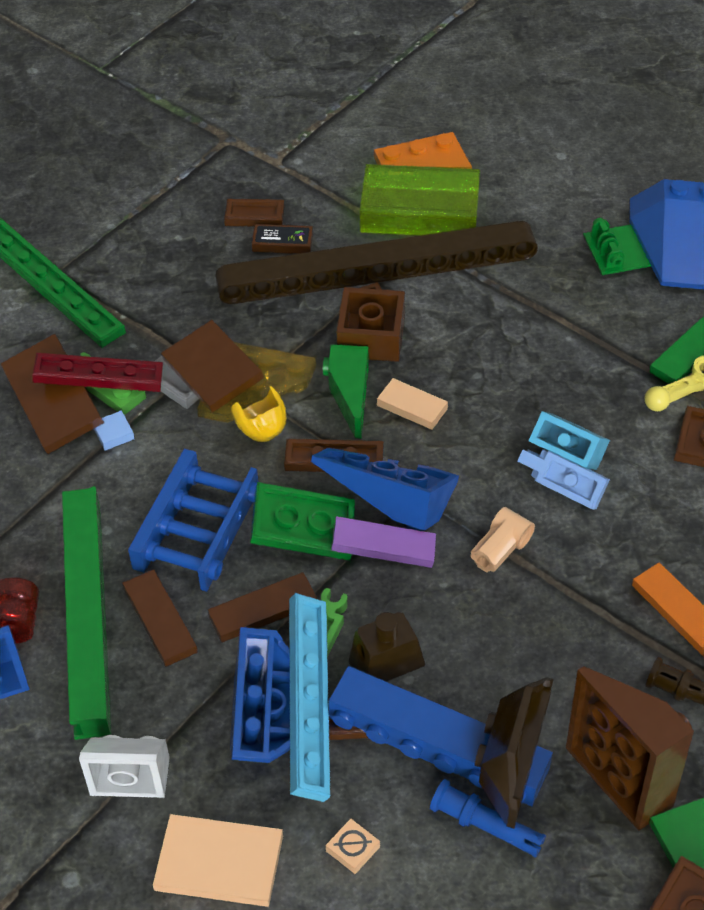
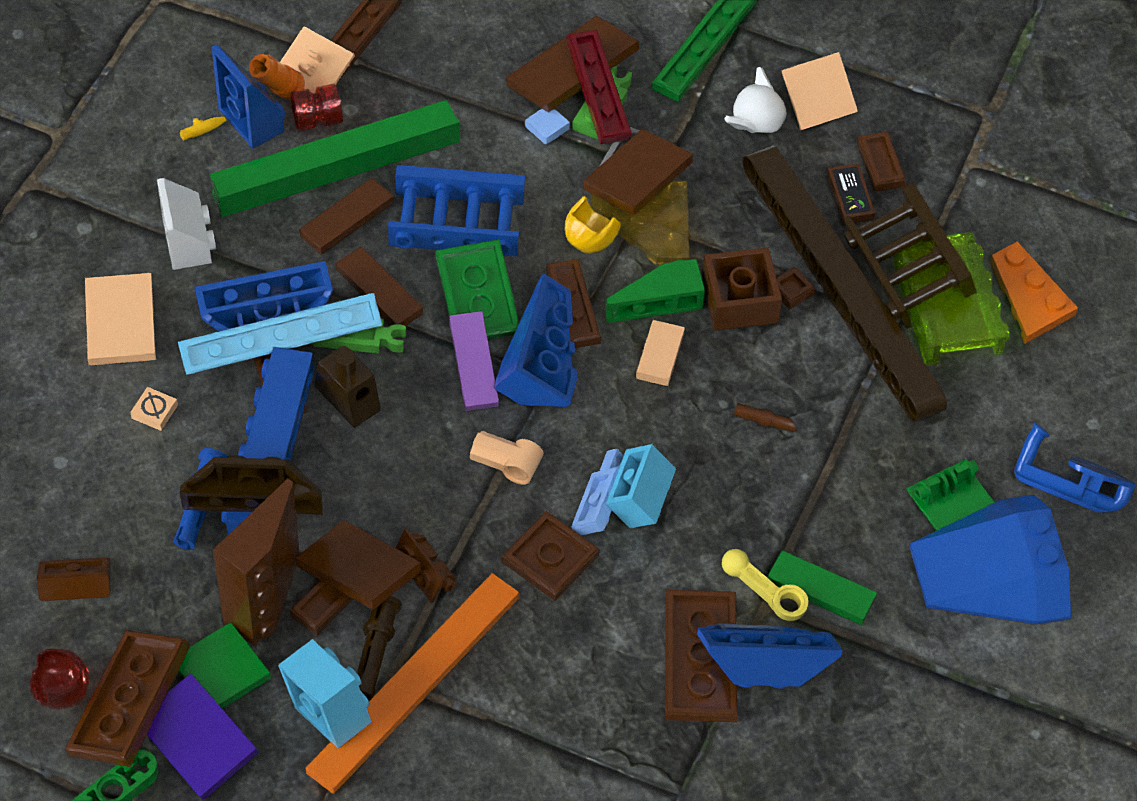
camera: 70 degrees right, 5 degrees up
(164, 272) = (758, 107): none -> white piece
(168, 227) = (819, 91): none -> light nougat piece
(378, 177) = (927, 230): none -> dark brown fence
(503, 348) = (764, 417): none -> reddish brown piece
(616, 634) = (433, 575): none -> reddish brown hinge
(617, 533) = (550, 555): none -> reddish brown tile
(622, 658) = (358, 564): none -> reddish brown tile
(630, 169) = (1085, 492): none -> blue piece

